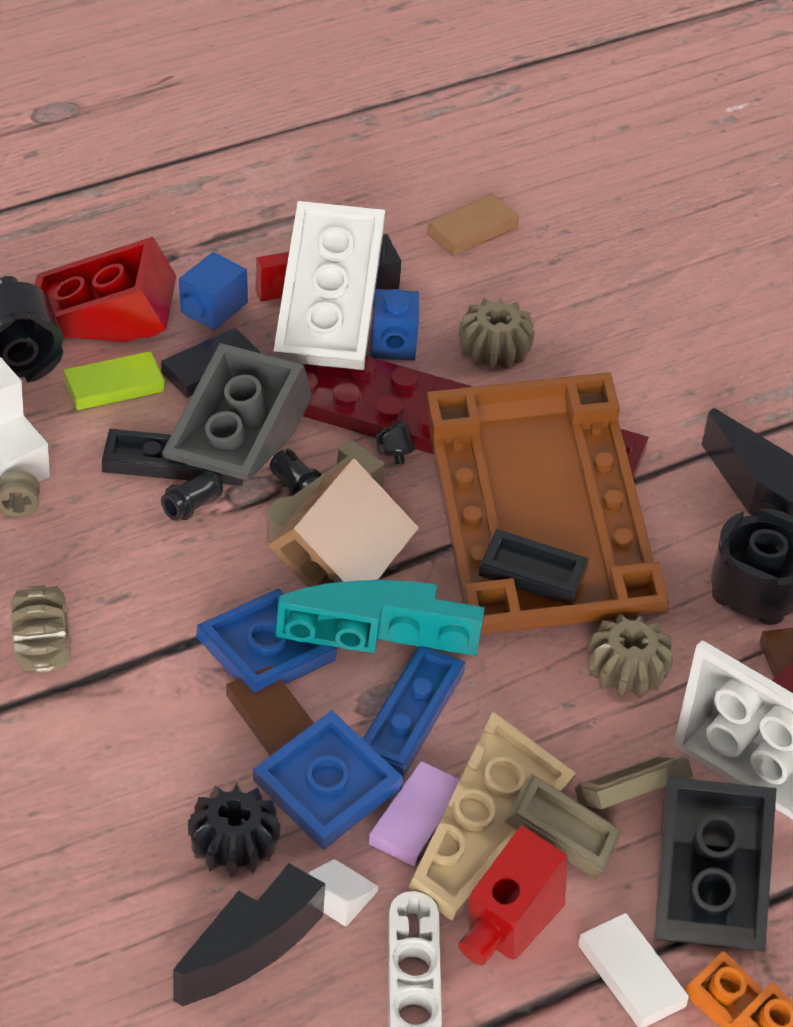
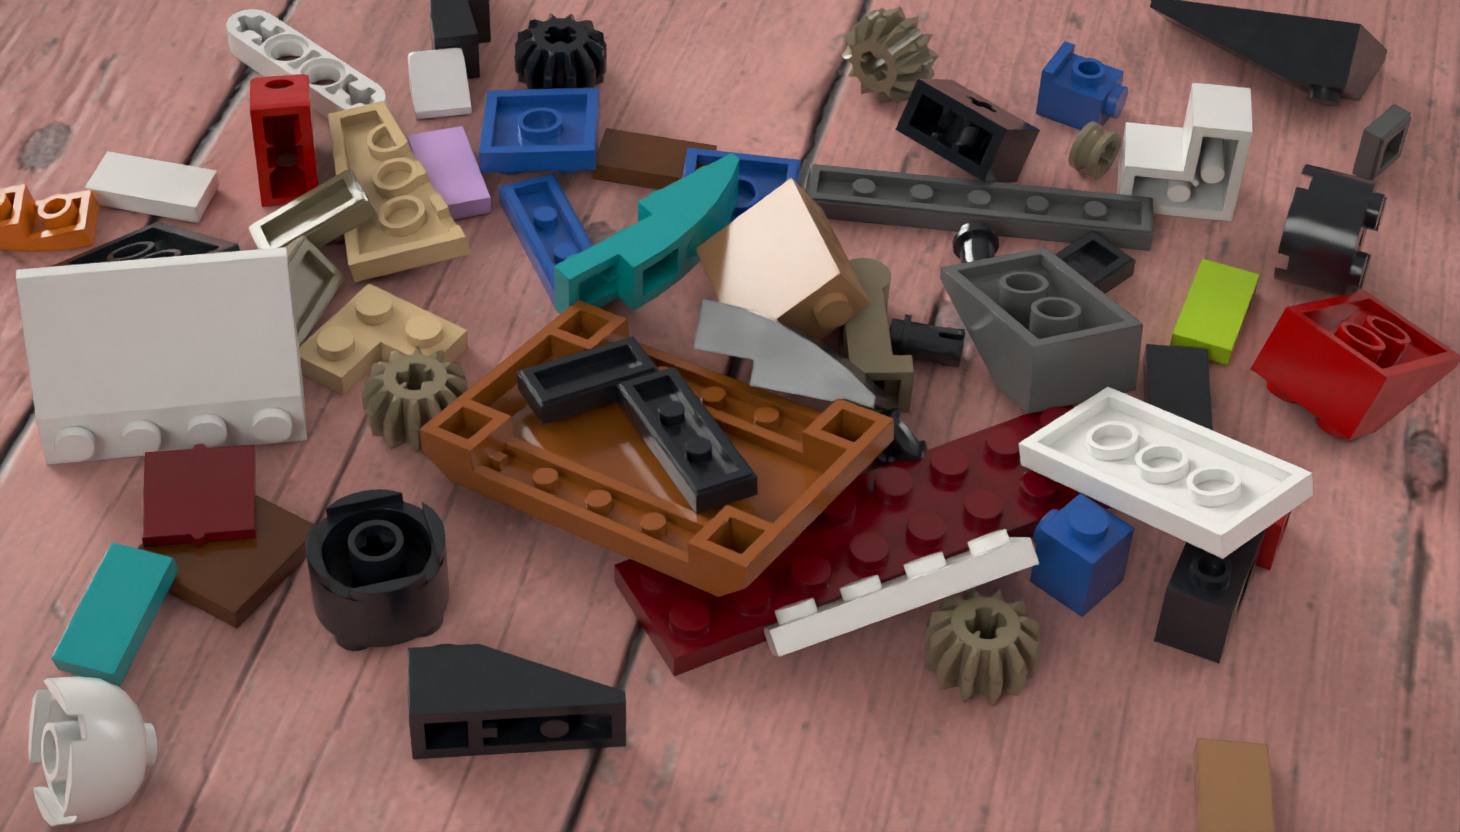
camera: 135 degrees right, 0 degrees up
(80, 547) = (967, 130): none -> black brick
(134, 534) = (1005, 207): none -> dark grey tile
(213, 290) = (1284, 424): blue brick -> none
(420, 482) = (784, 355): none -> slope
(483, 352) = (924, 582): none -> white wing
(533, 481) = (686, 440): none -> black tile
(599, 740) = (368, 332): none -> tan plate

